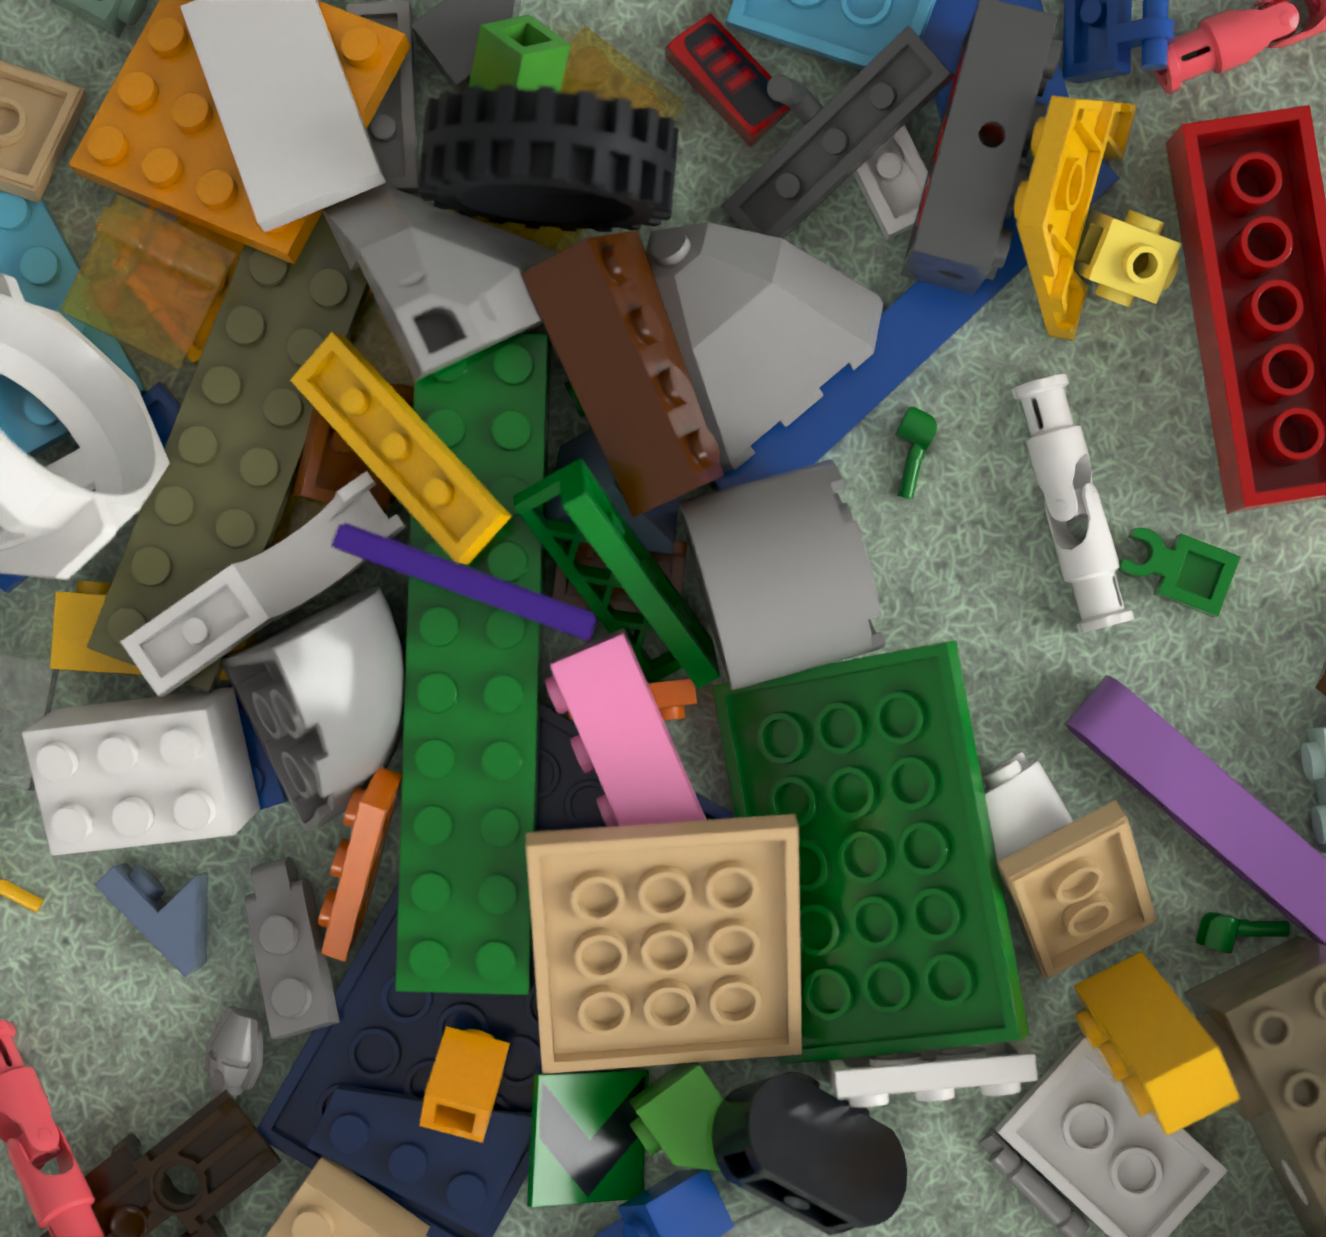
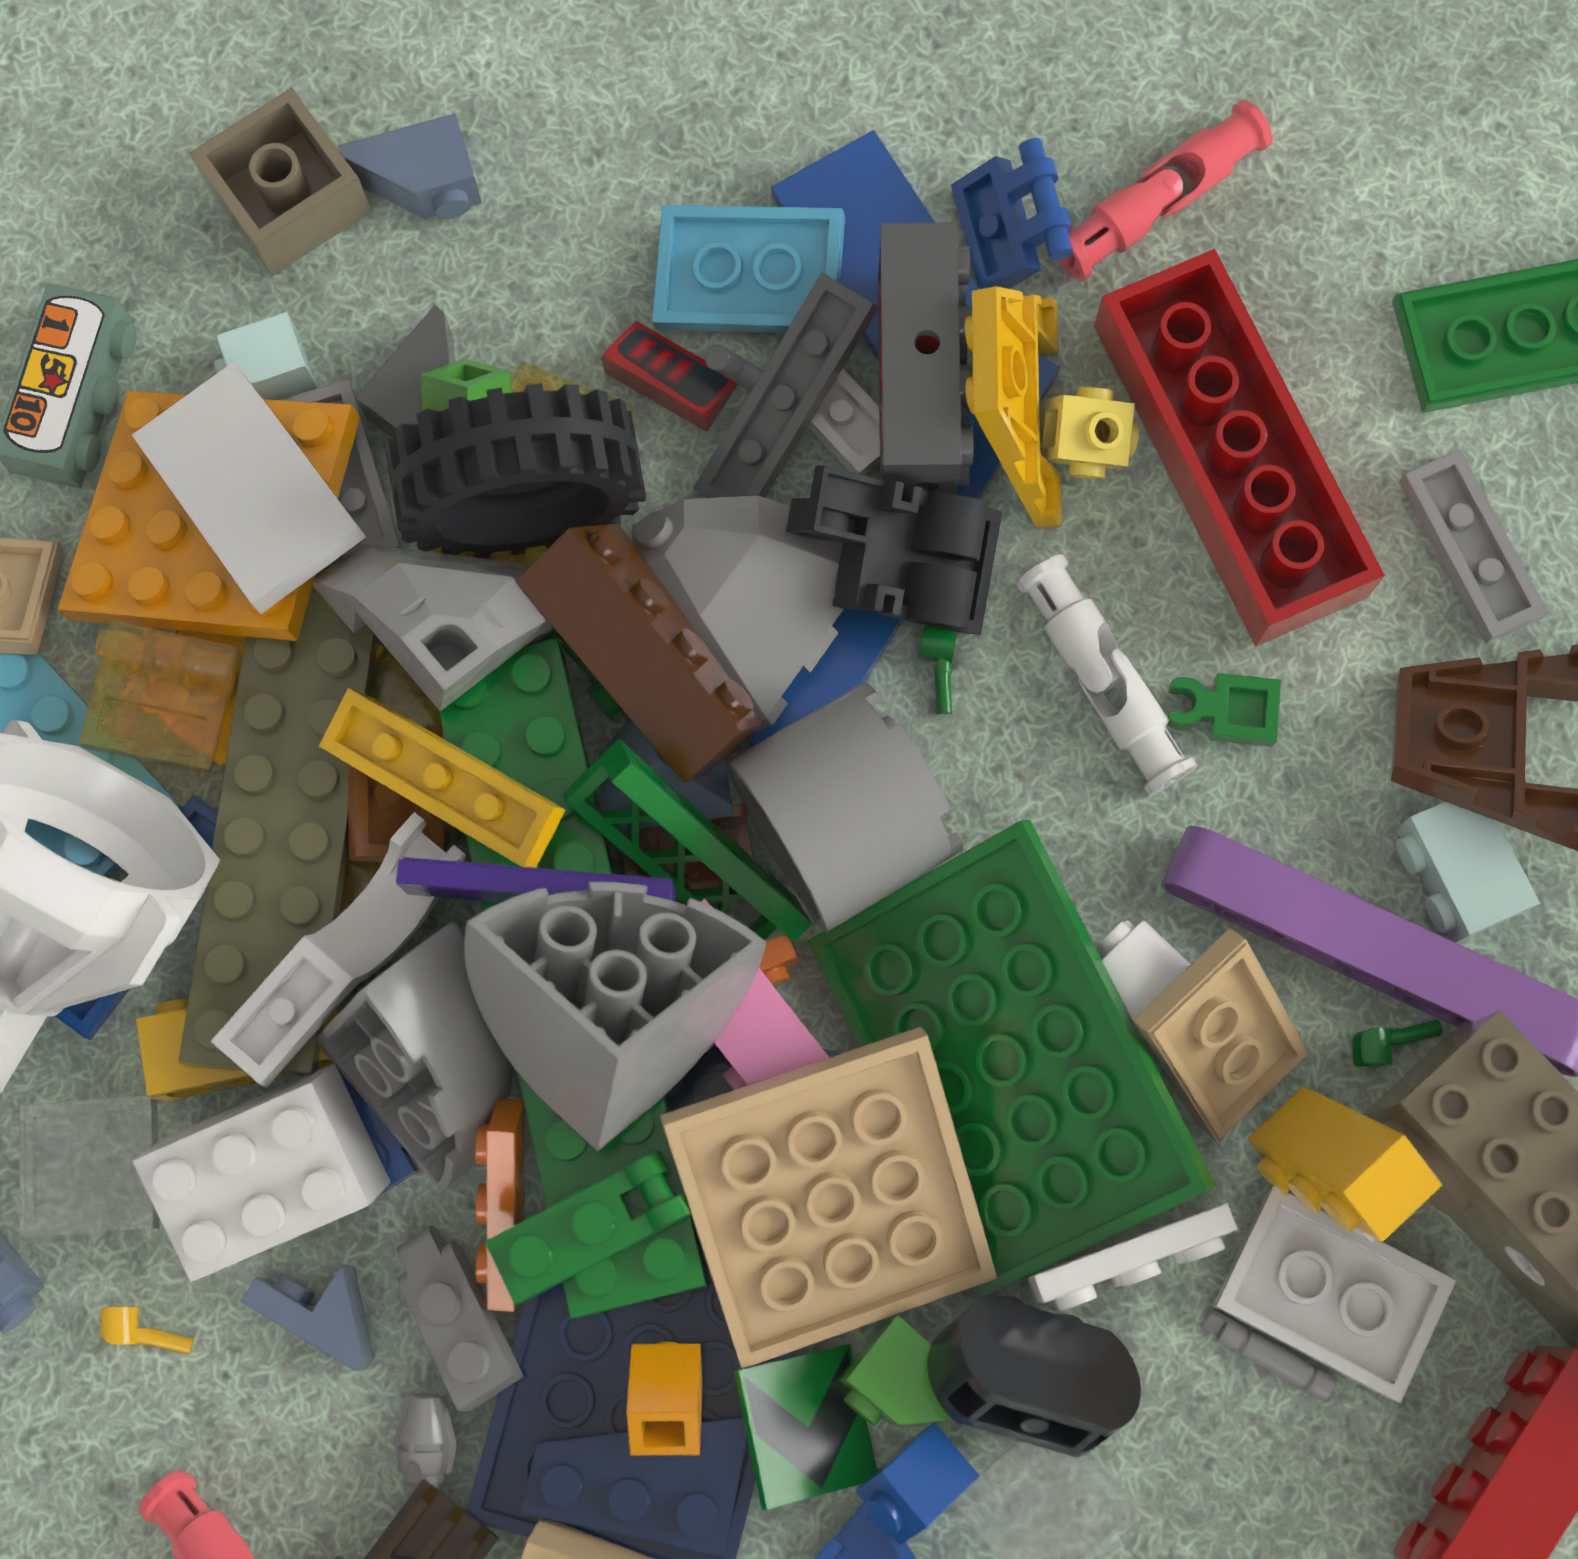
camera: 15 degrees left, 10 degrees down
(428, 917) = (584, 1229): none -> green plate
(505, 707) = (606, 994): none -> light grey brick
(909, 332) = (903, 547): none -> black plate

